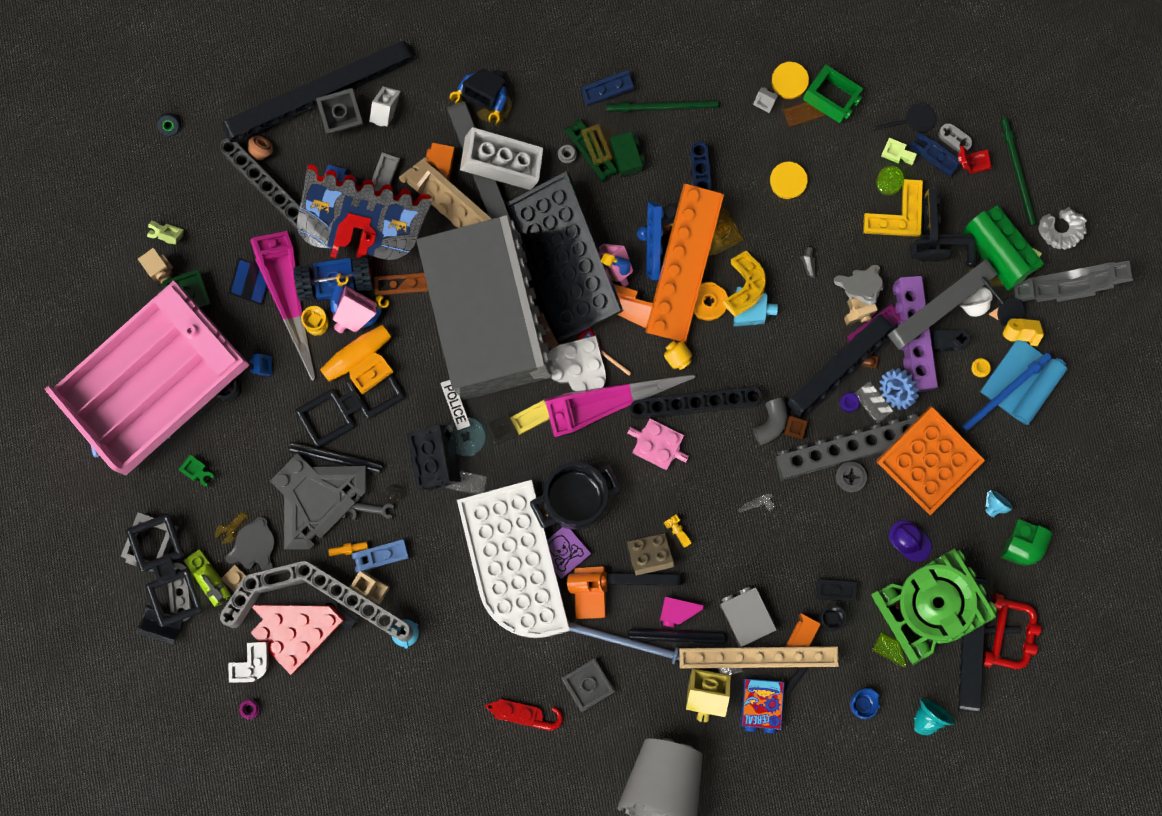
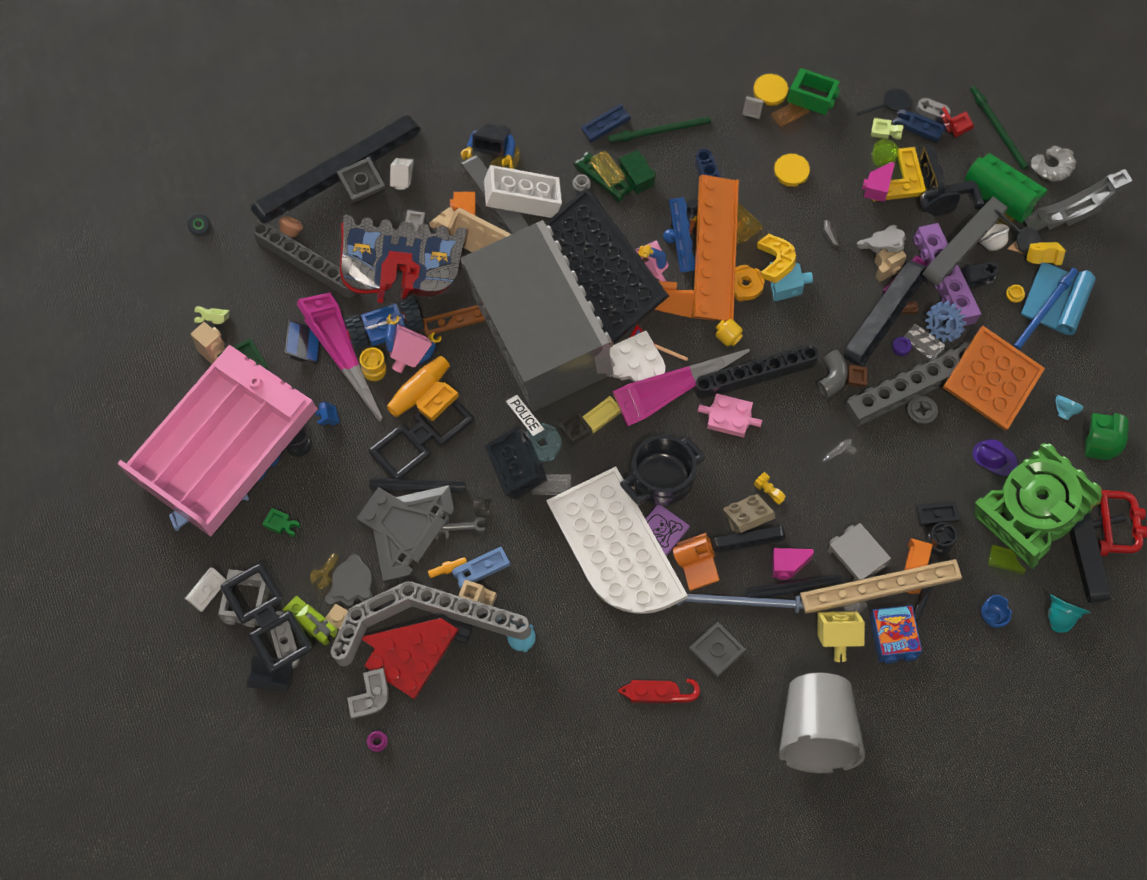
camera: 10 degrees left, 15 degrees down
(114, 526) = (205, 589): none -> white plate
(872, 218) = (878, 183): none -> dark pink slope

